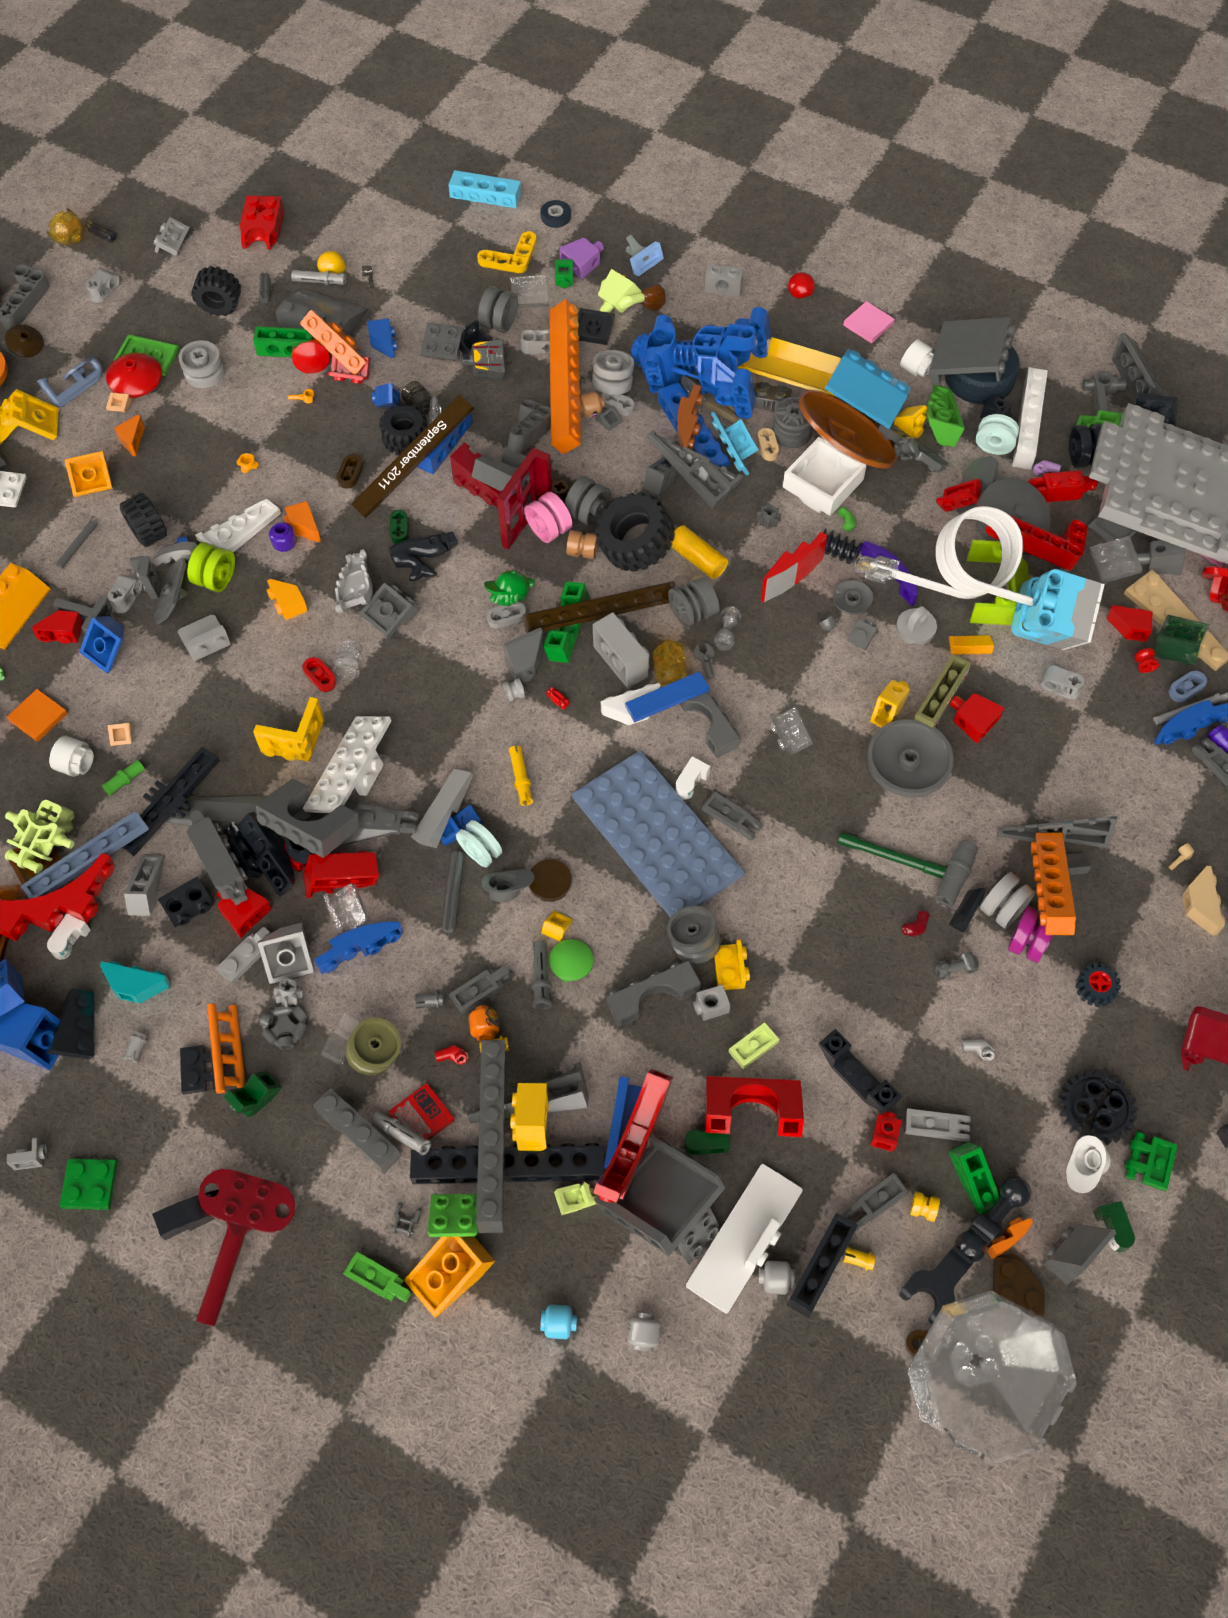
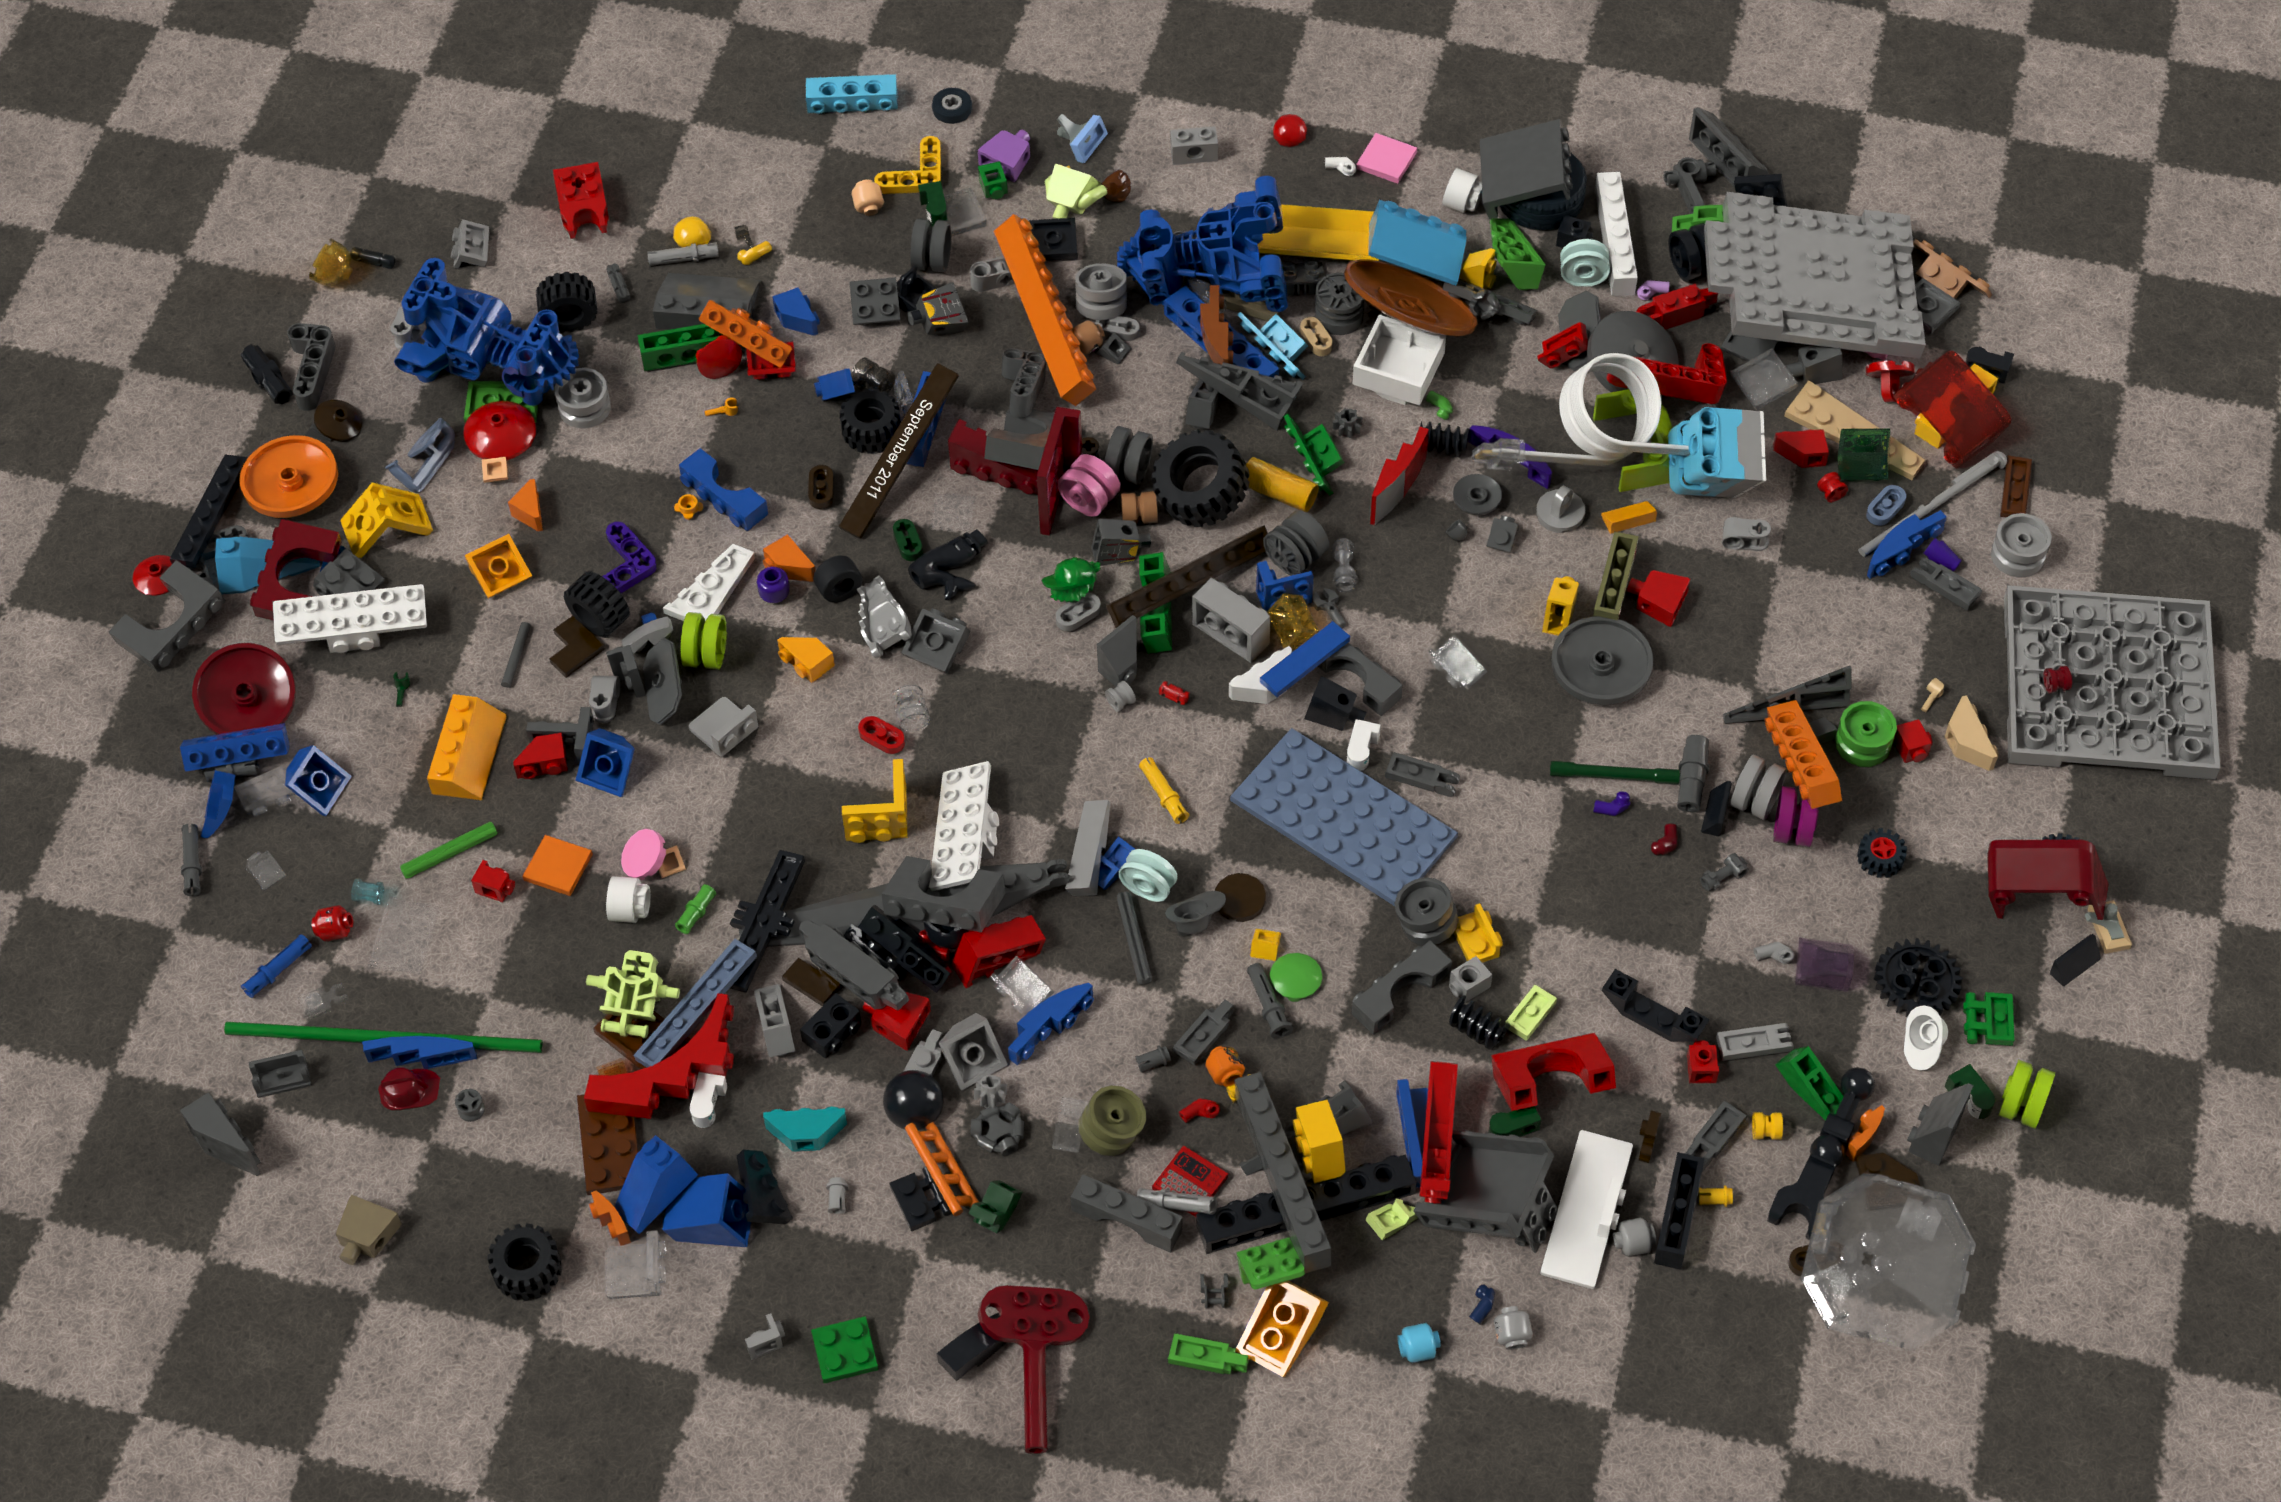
camera: 15 degrees left, 5 degrees down
(100, 723) = (643, 854): none -> bright pink tile
(125, 548) = (579, 649): none -> dark brown tile
(133, 299) = (480, 336): none -> blue connector
(187, 498) = (632, 565): none -> dark purple beam
(187, 860) = (811, 982): none -> dark brown tile
(225, 982) = (913, 1098): none -> black piece
(285, 471) = (742, 506): none -> blue arch
(331, 544) = (837, 579): none -> black tyre
(368, 288) = (751, 255): none -> yellow arm
(467, 265) = (867, 197): none -> light nougat head
(512, 277) = (933, 196): none -> dark green leg
(555, 566) = (1117, 541): none -> dark grey torso
(627, 1302) = (1485, 1305): none -> dark blue arm
(661, 633) = (1270, 588): none -> blue bracket
(678, 740) = (1333, 705): none -> black torso
(704, 1044) = (1476, 1024): none -> black piece
(738, 533) = (1318, 450): none -> green bracket
(820, 1182) = (1649, 1131): none -> dark brown plate
(833, 319) = (1343, 164): none -> white arm
(883, 884) = (1614, 807): none -> dark purple arm
(1019, 1070) = (1824, 964): none -> clear purple slope
(1114, 877) = (1865, 733): none -> bright green wheel
(1152, 893) = (1912, 741): none -> red brick
(1167, 1247) = (2022, 1092): none -> lime wheel

